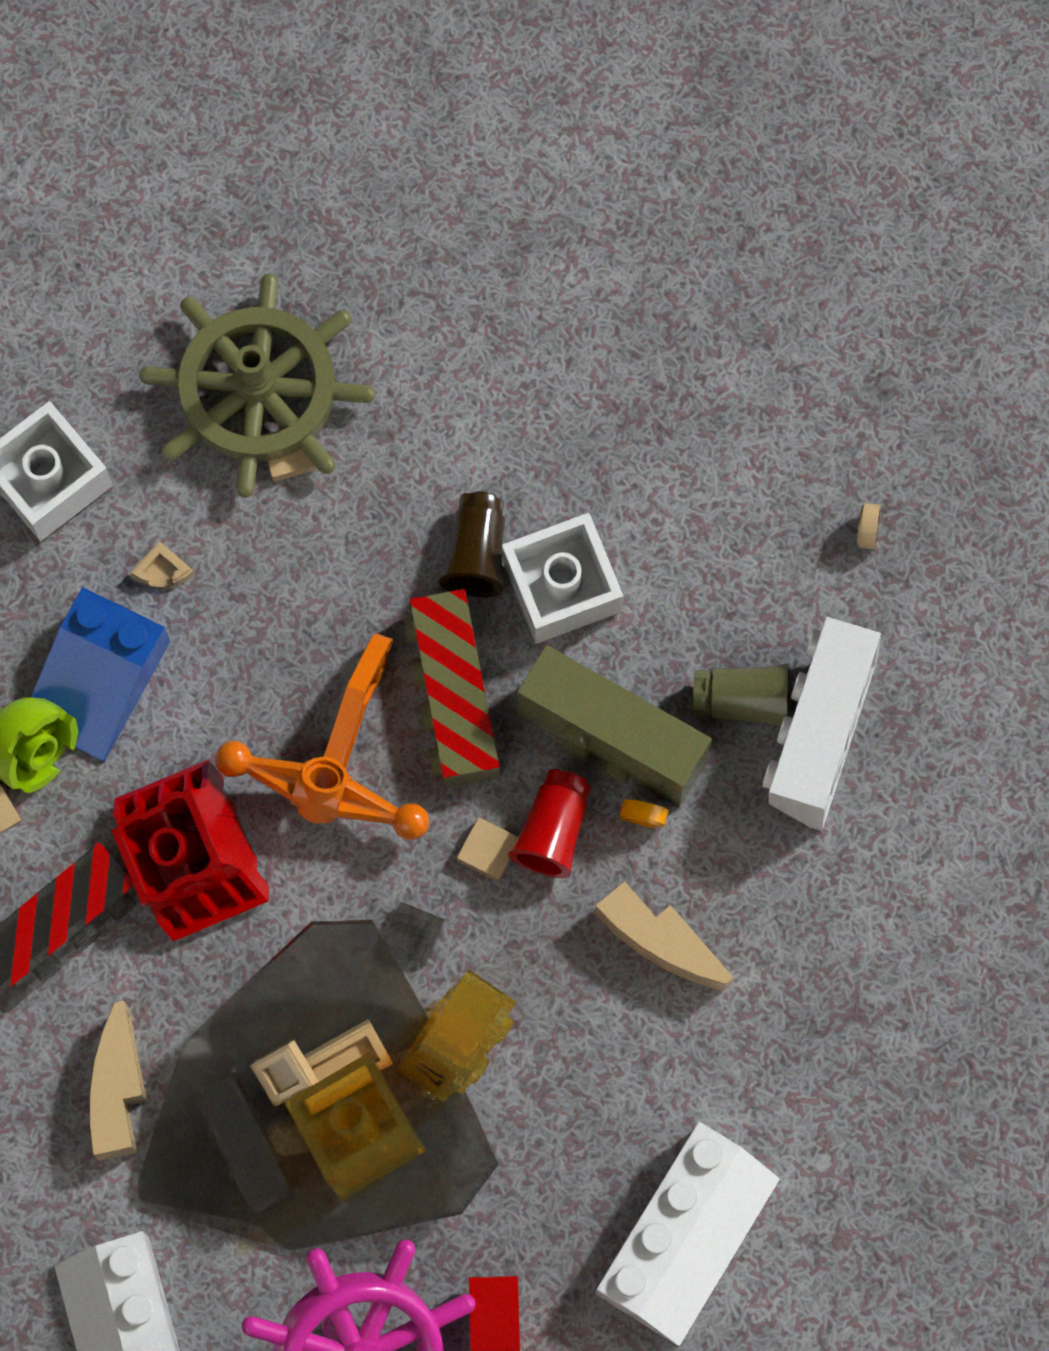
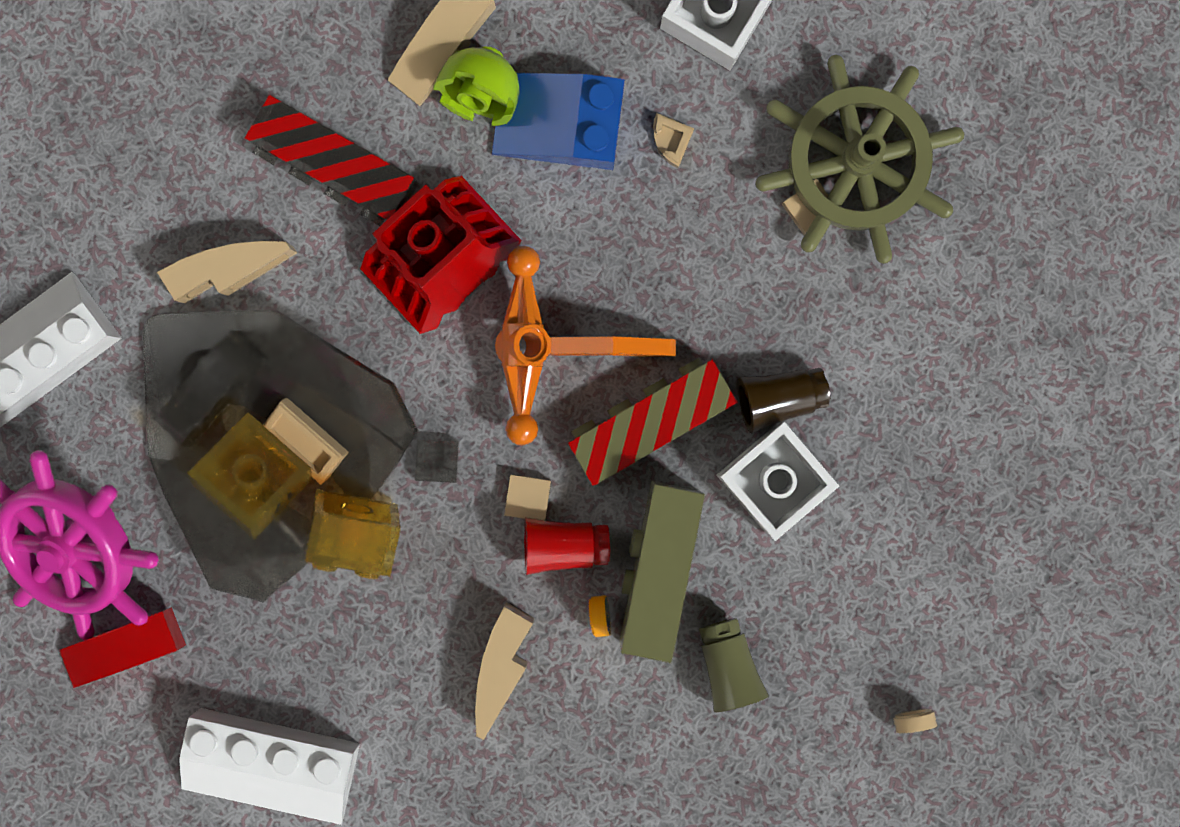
camera: 70 degrees right, 15 degrees up
(284, 1073) = (274, 402): tan tile -> none
(823, 721) = (727, 746): white slope -> none

